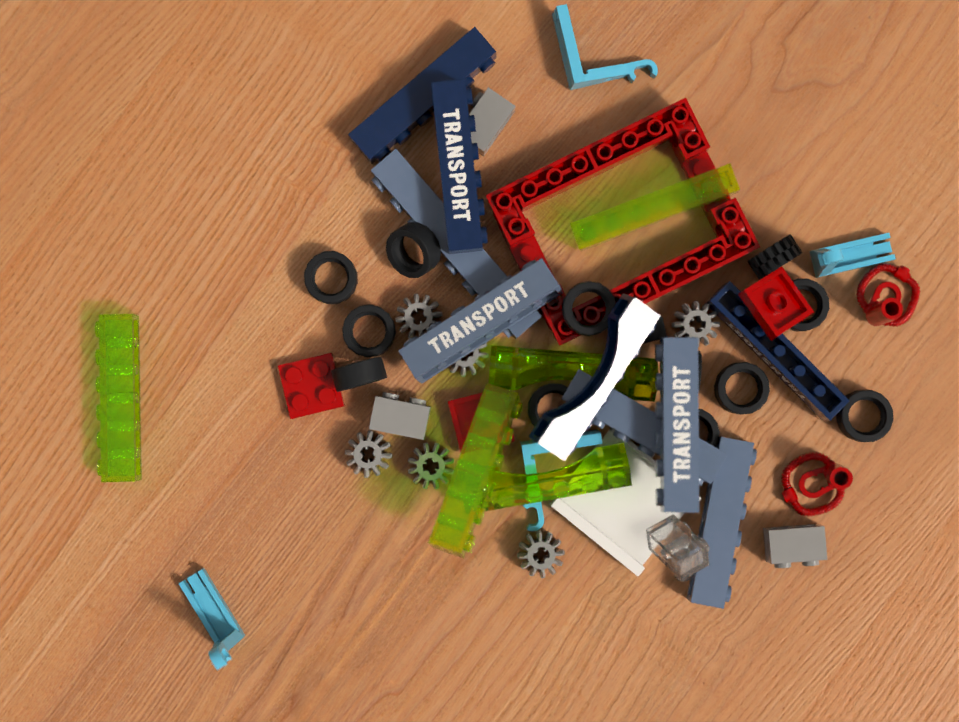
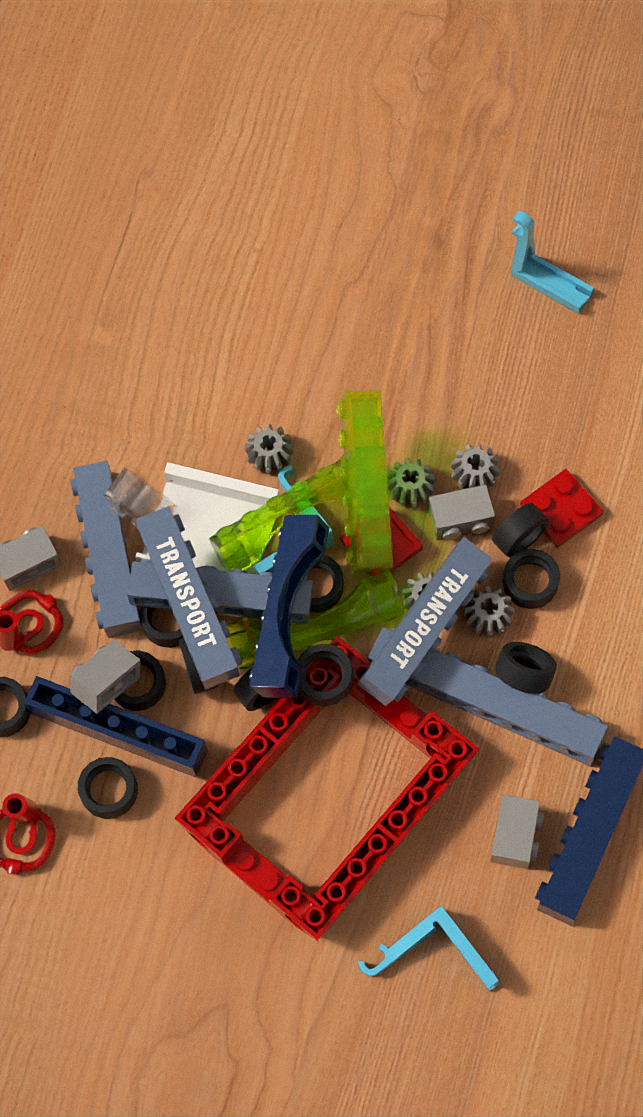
camera: 160 degrees right, 20 degrees down
(316, 262) = (599, 591): black tyre -> none
(457, 166) = (521, 761): dark blue brick -> none
(655, 207) = (299, 811): clear neon green brick -> none
(701, 317) = (216, 712): light grey gear -> none
(773, 392) = (104, 676): none -> light grey brick
(774, 256) = (154, 818): black tyre -> none
(776, 303) = (135, 764): red plate -> none
(851, 255) = (76, 859): medium azure hinge -> none

